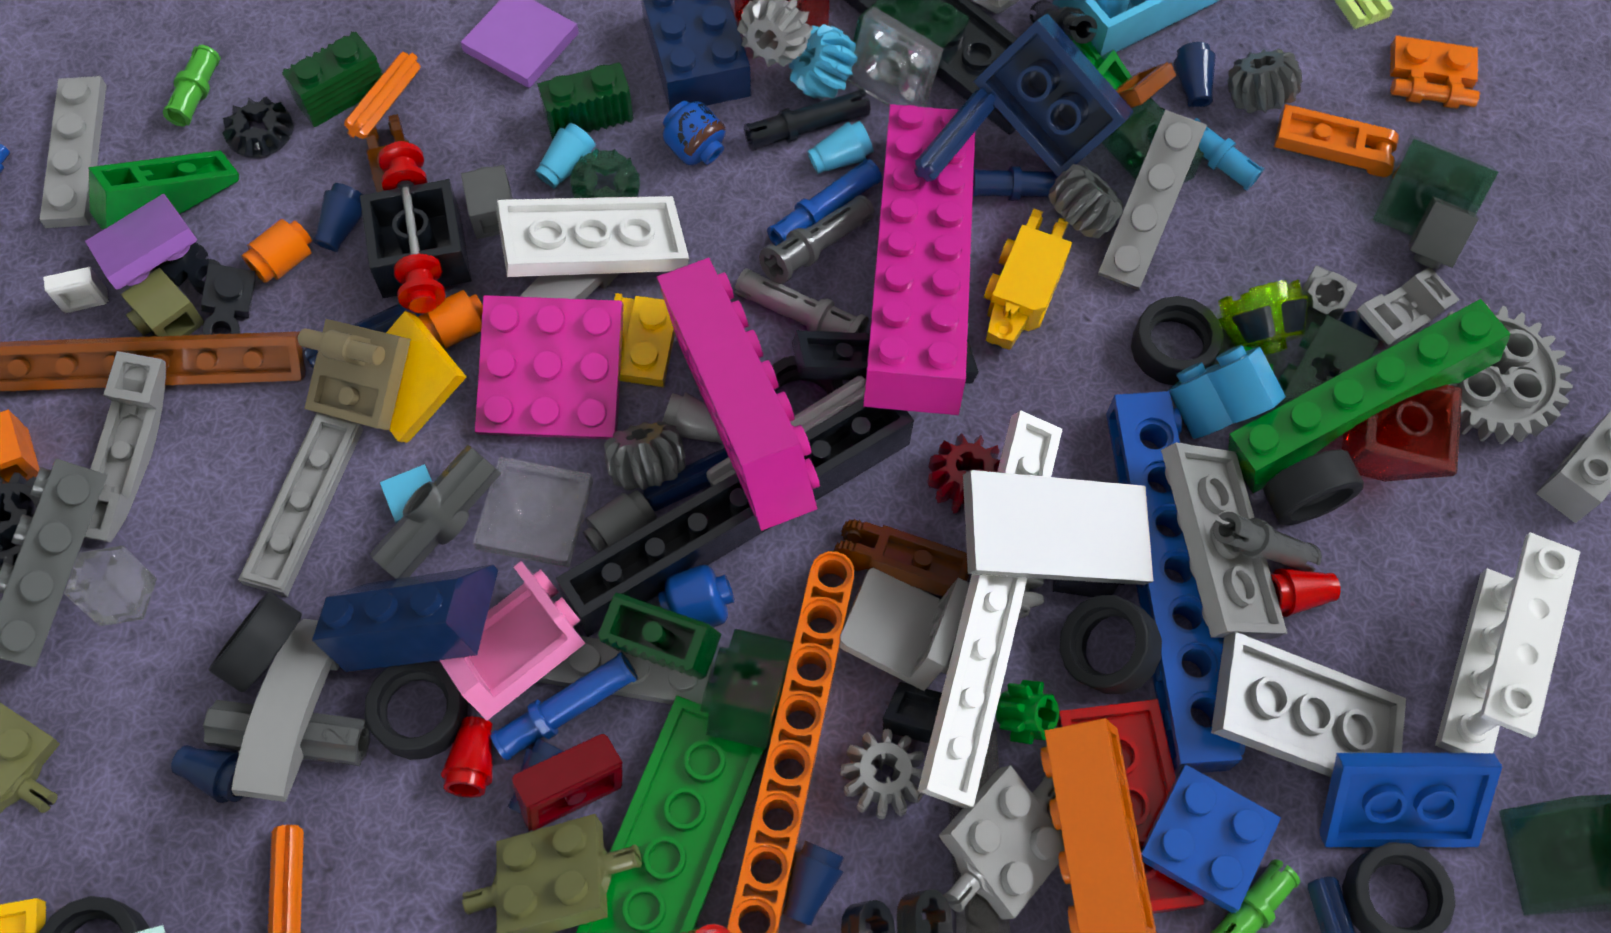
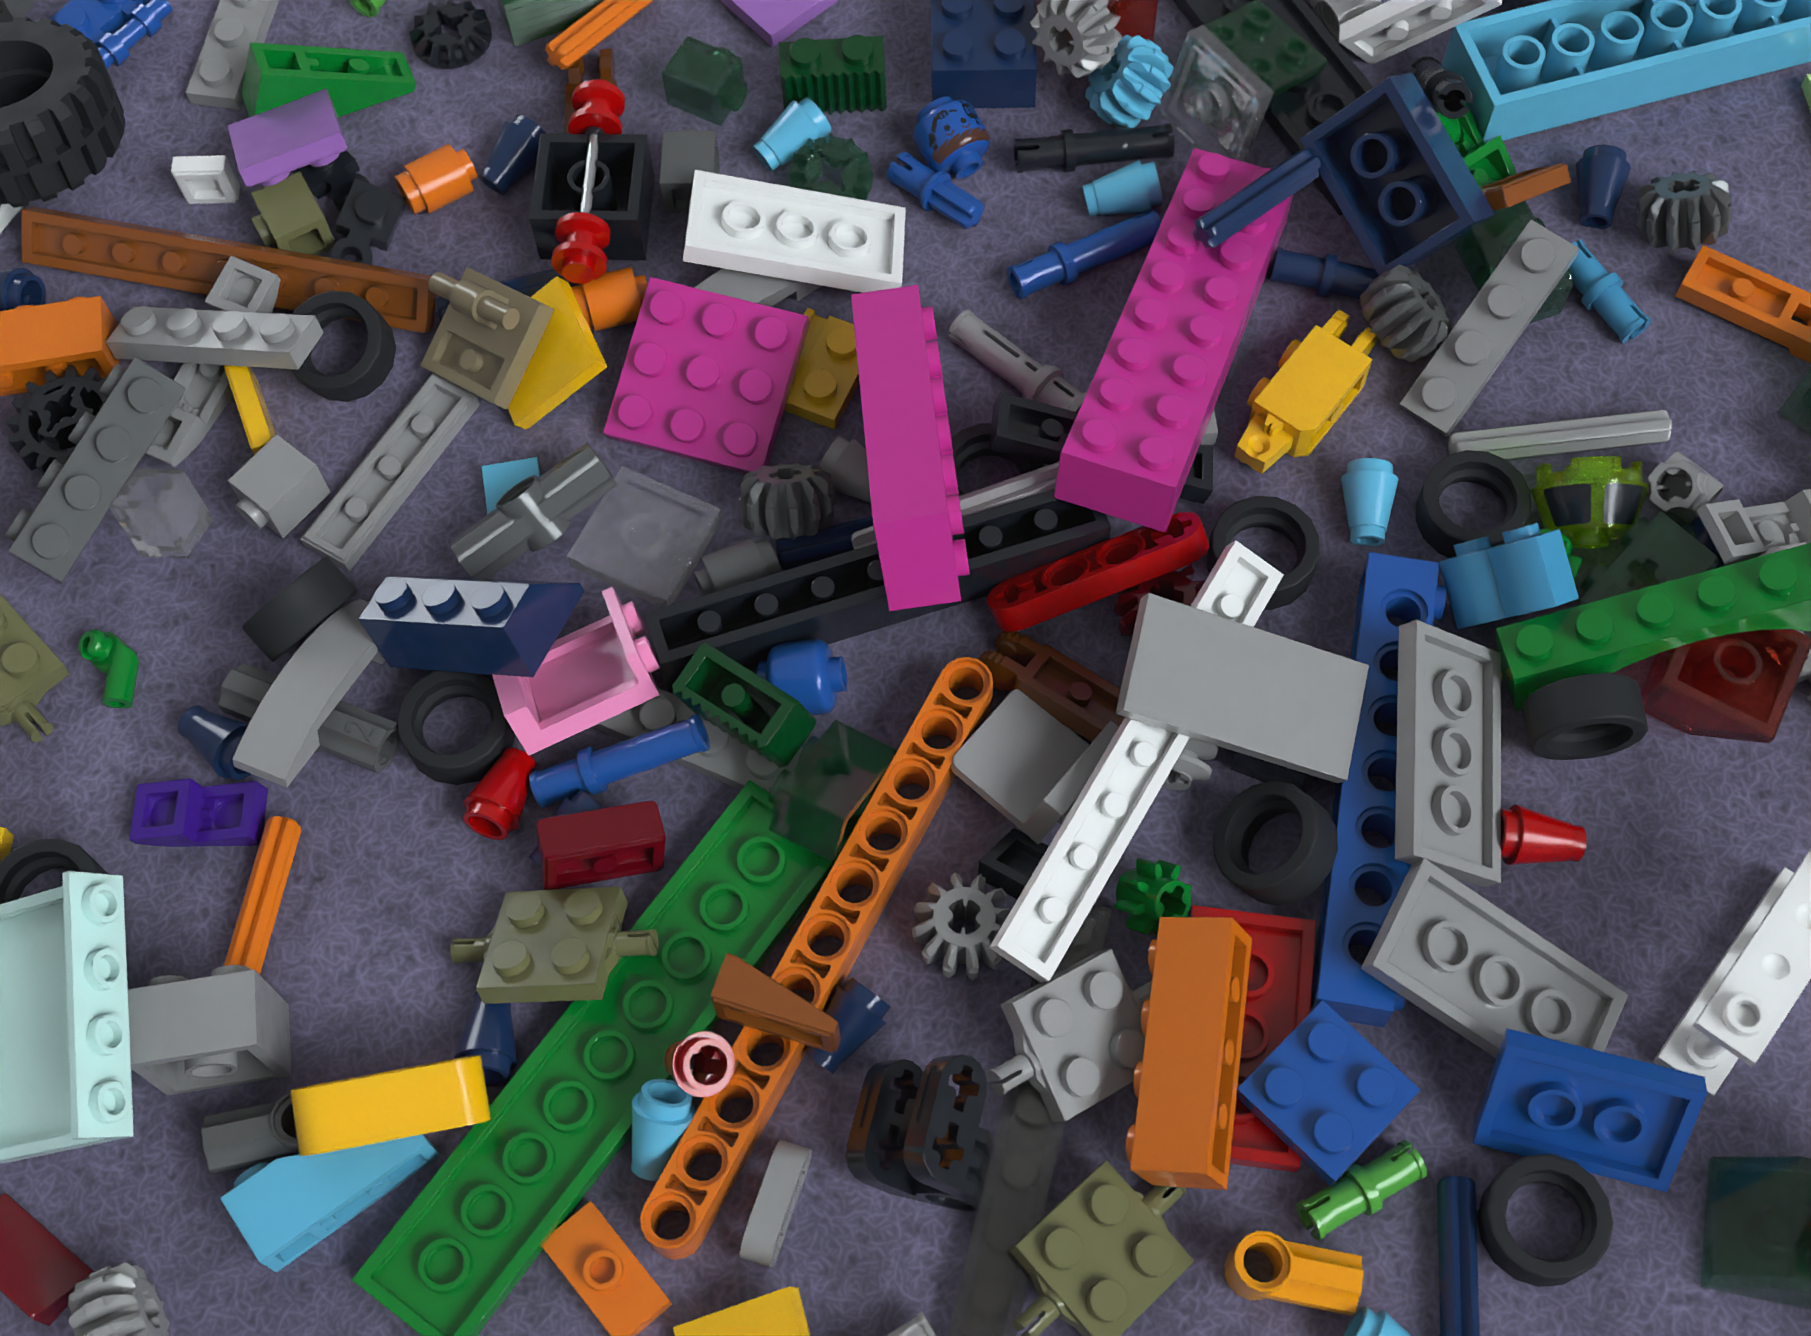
camera: 20 degrees right, 0 degrees up
(100, 723) = (115, 661): none -> green arm
(120, 424) = (215, 337): none -> light grey plate
(170, 481) = (250, 406): none -> yellow tile
(202, 387) = (373, 365): none -> black tyre
(208, 540) = (278, 487): none -> light grey brick
(208, 841) = (194, 815): none -> dark purple slope
(482, 125) = (705, 81): none -> clear green brick
(692, 178) = (935, 191): none -> blue axle
(745, 886) = (761, 1003): none -> dark orange slope
(805, 245) = (1045, 296): dark grey pin -> none
(867, 490) = (1097, 572): none -> red beam
(1030, 380) = (1283, 518): none -> black tyre
(1097, 351) = (1368, 499): none -> medium azure cone
(1227, 270) = (1567, 435): none -> light grey axle
(1260, 540) = (1489, 759): dark grey pin -> none

